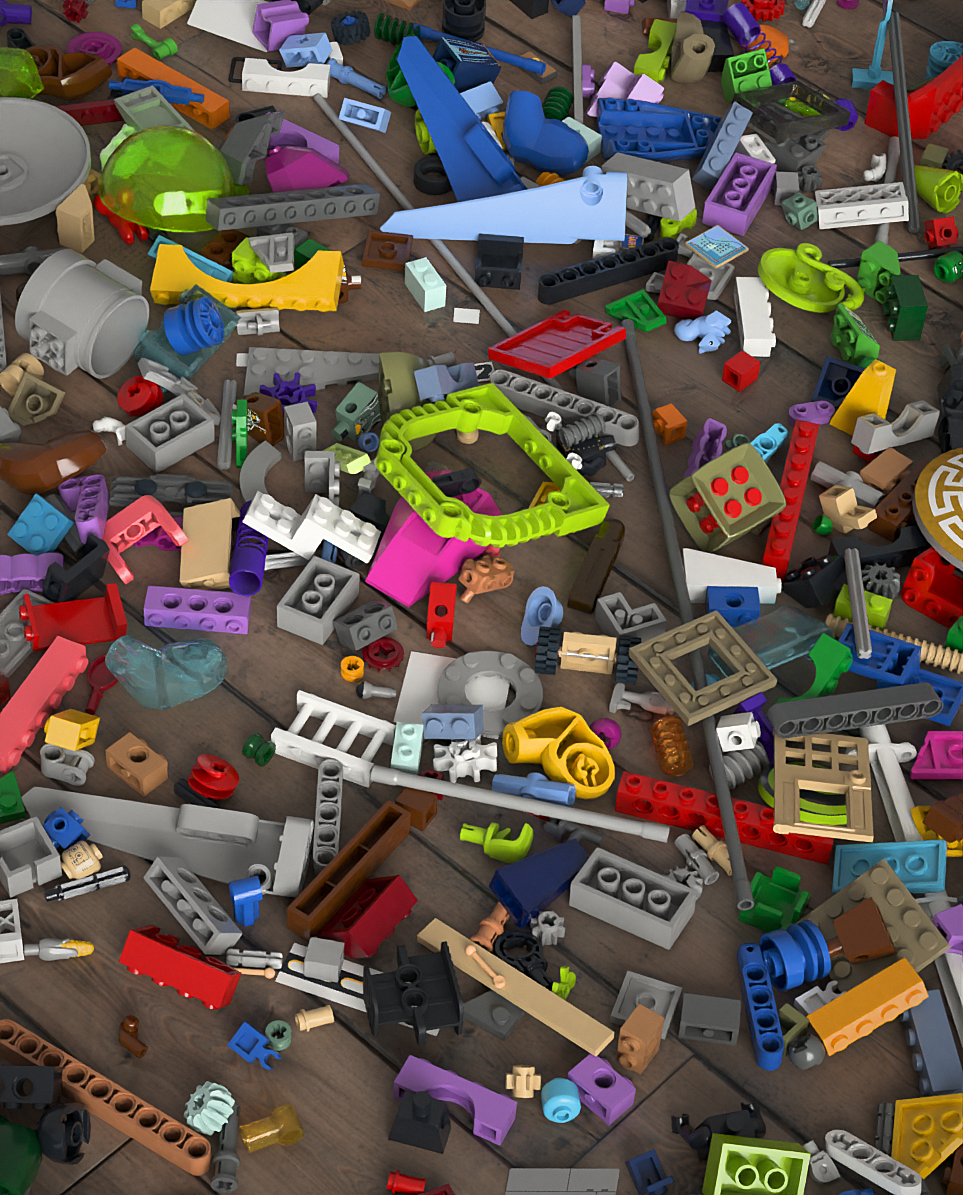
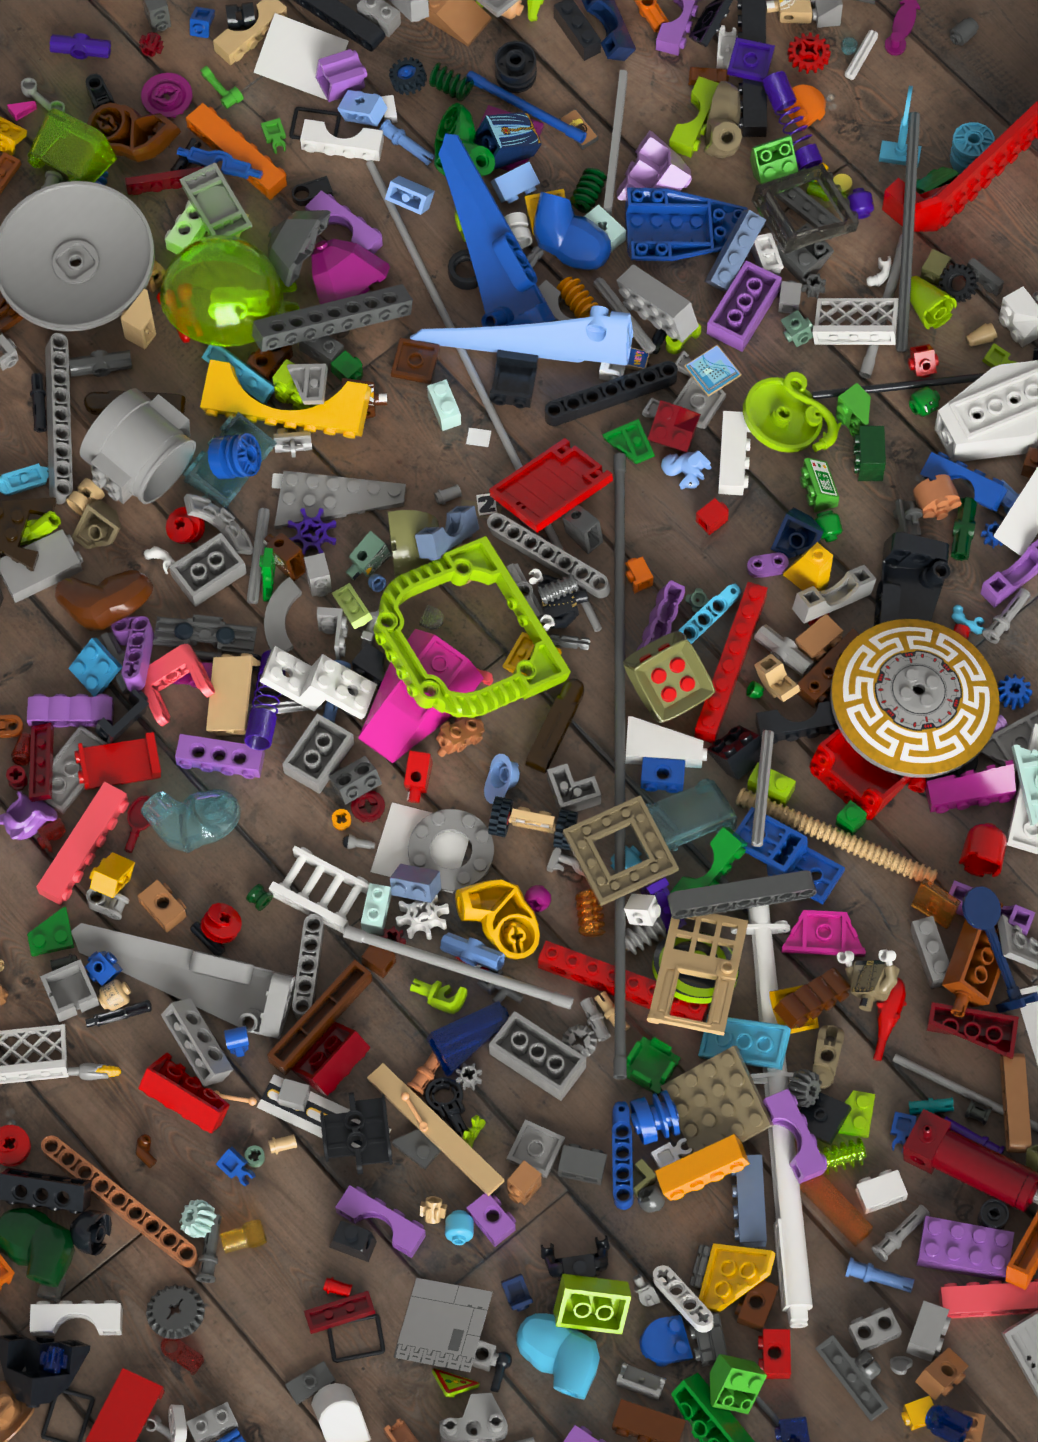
camera: 10 degrees right, 20 degrees up
(212, 74) = (274, 132): none -> bright green plate
(254, 958) = (241, 1088): light grey axle -> none
(458, 482) = (439, 654): black piece -> none
(587, 81) = (624, 146): medium lavender plate -> none
(861, 934) = (706, 1108): reddish brown torso -> none
(881, 580) = (790, 763): dark grey gear -> none

